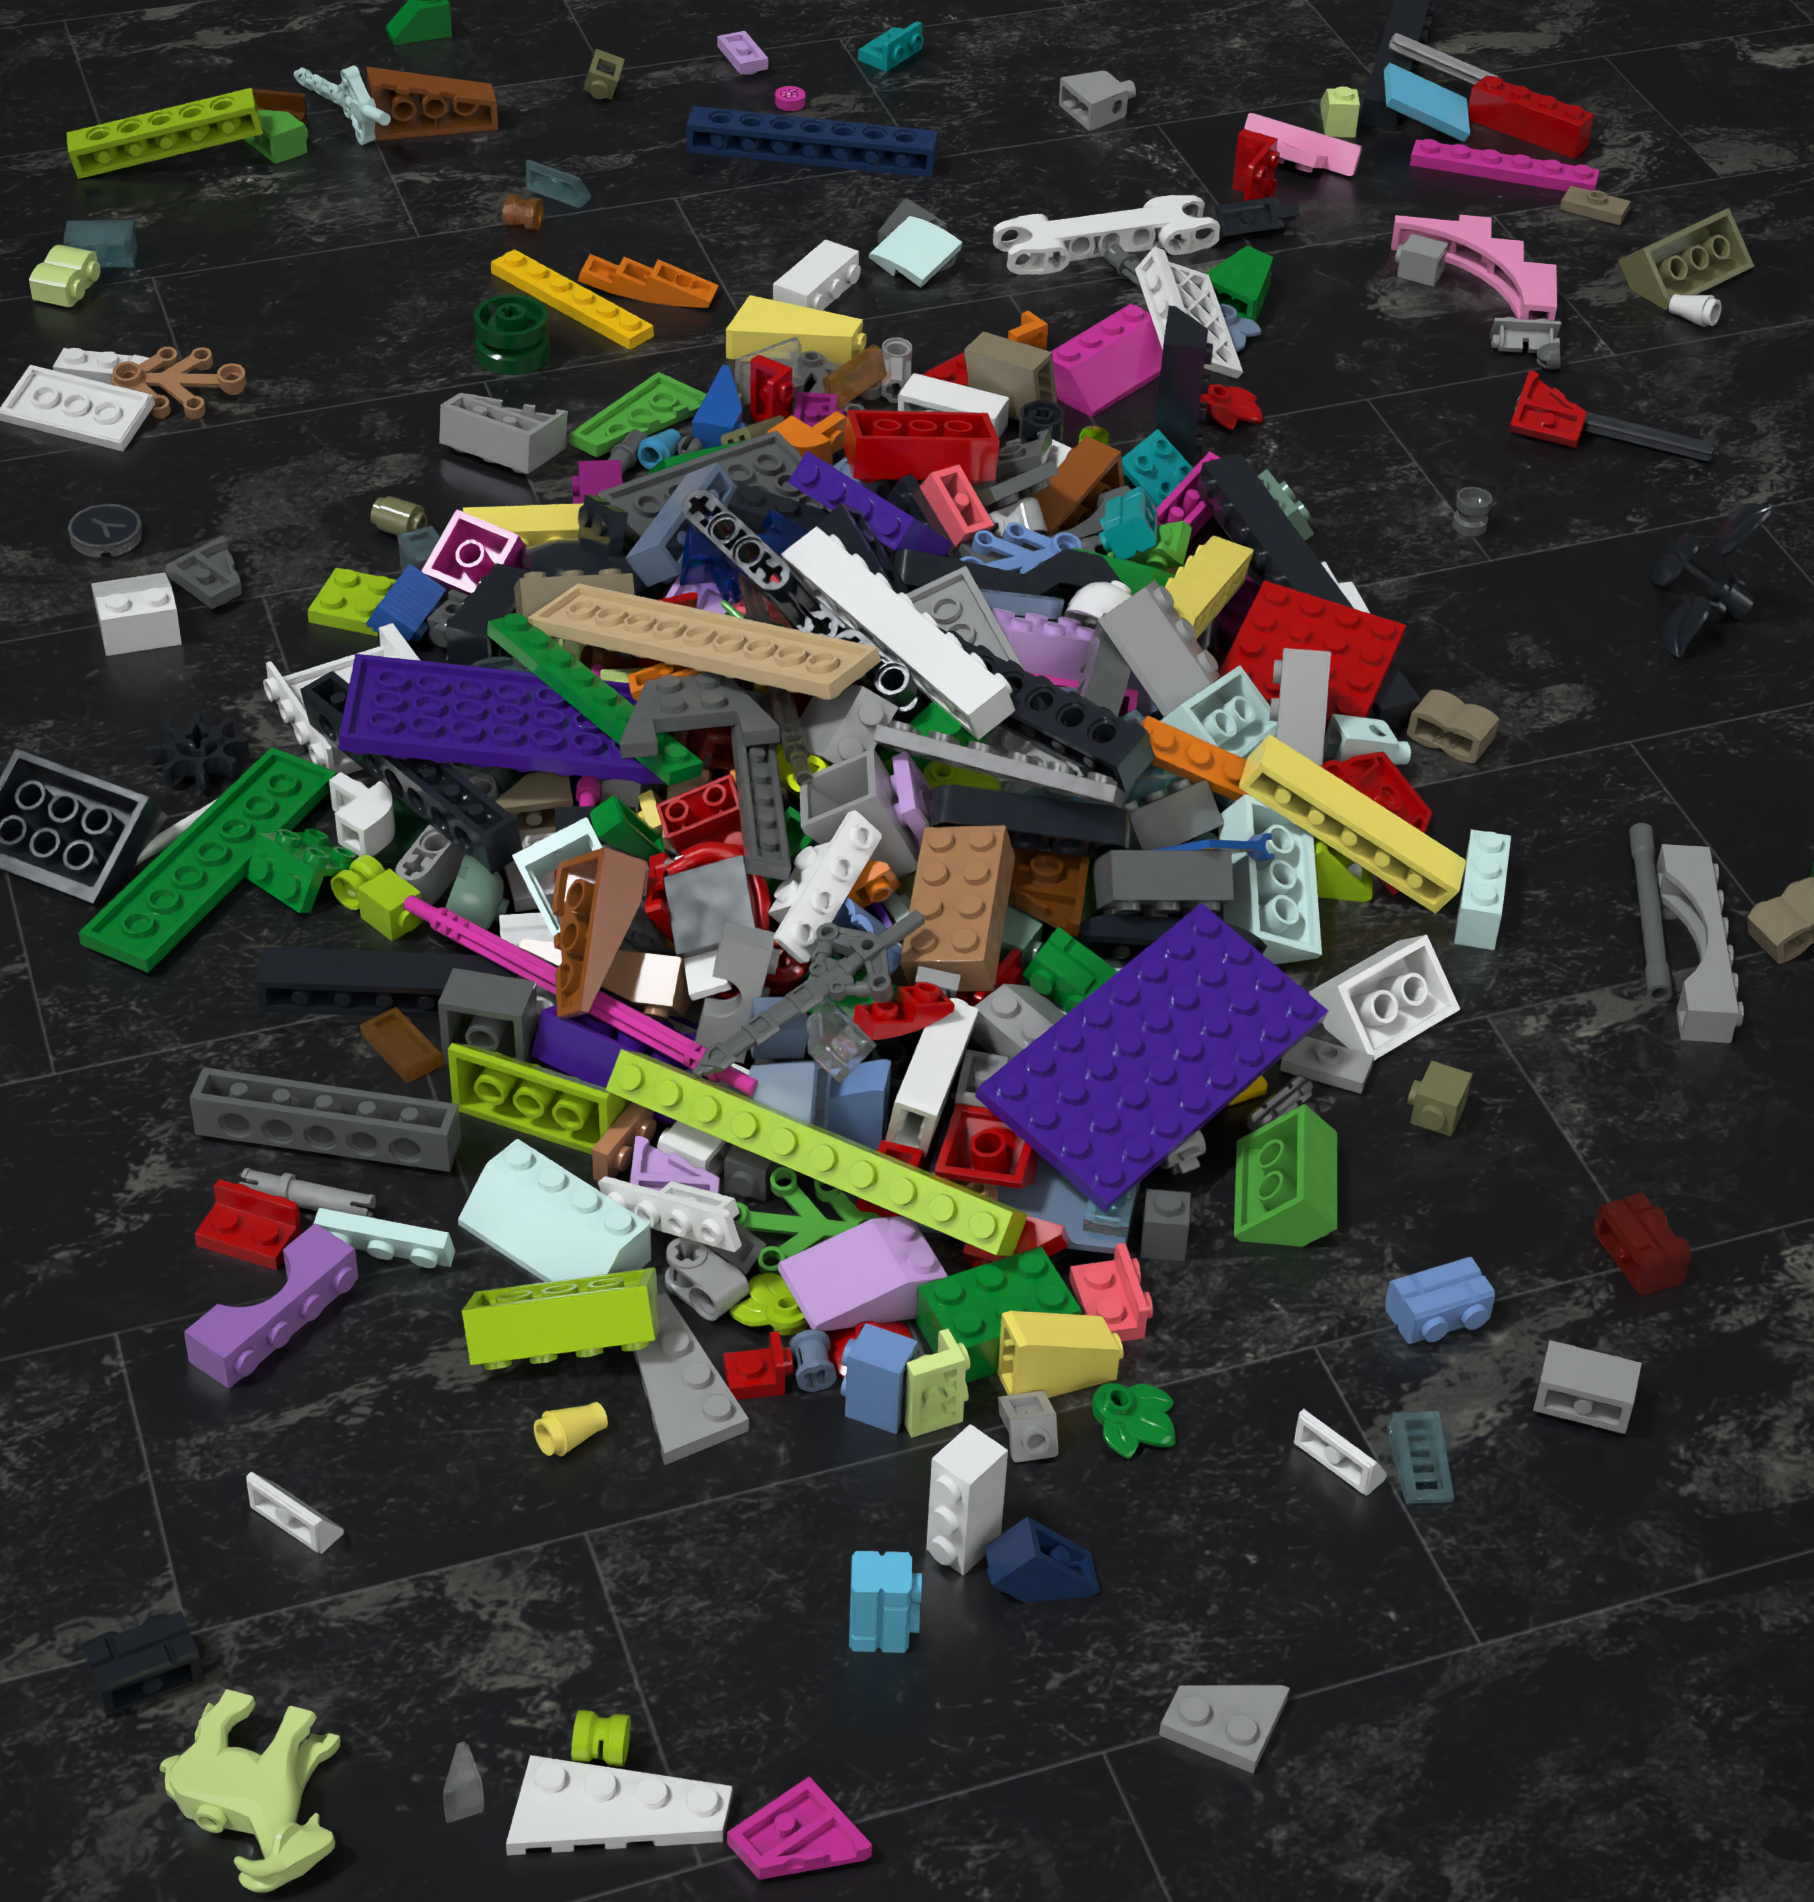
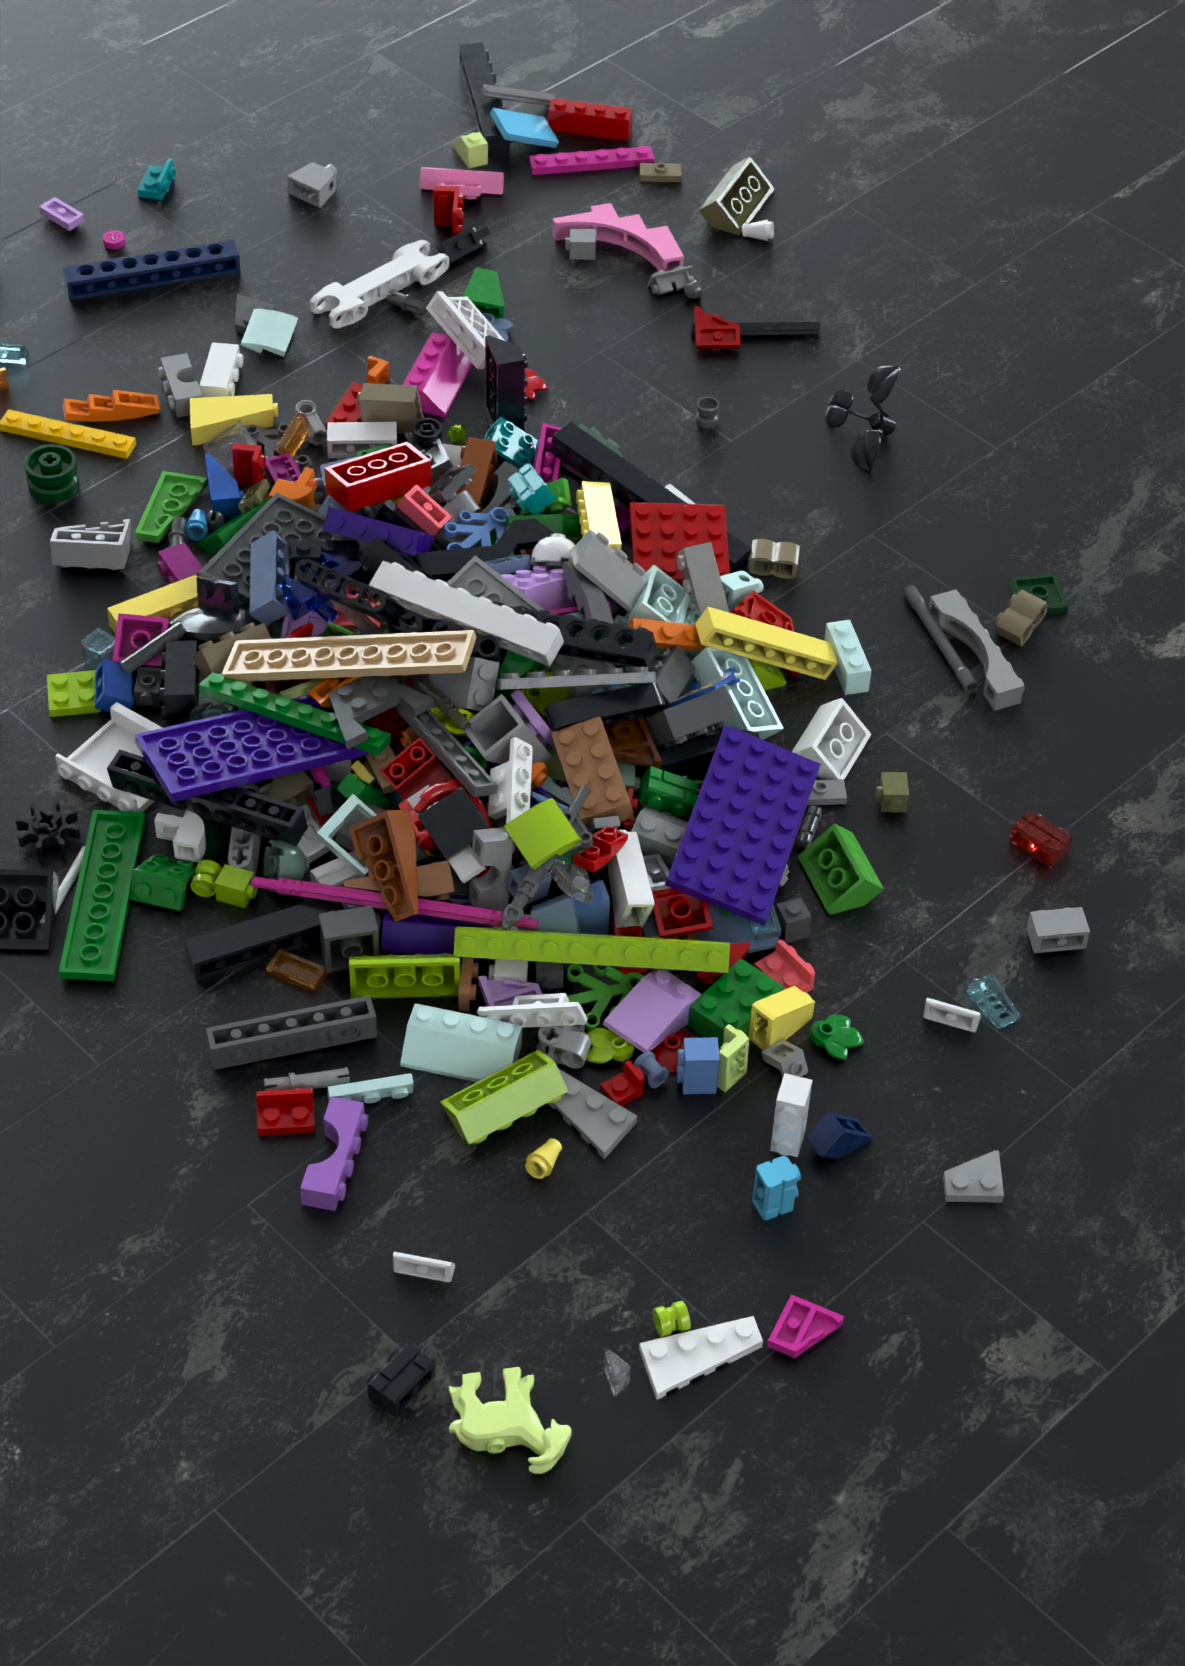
camera: 25 degrees left, 5 degrees up
(397, 515) = (64, 627): olive brick -> none
(475, 568) = (152, 648): none -> dark grey axle
(754, 273) = (178, 383): none -> light grey arch
(816, 954) = (542, 833): none -> lime slope
(1440, 1301) = (957, 910): medium blue brick -> none

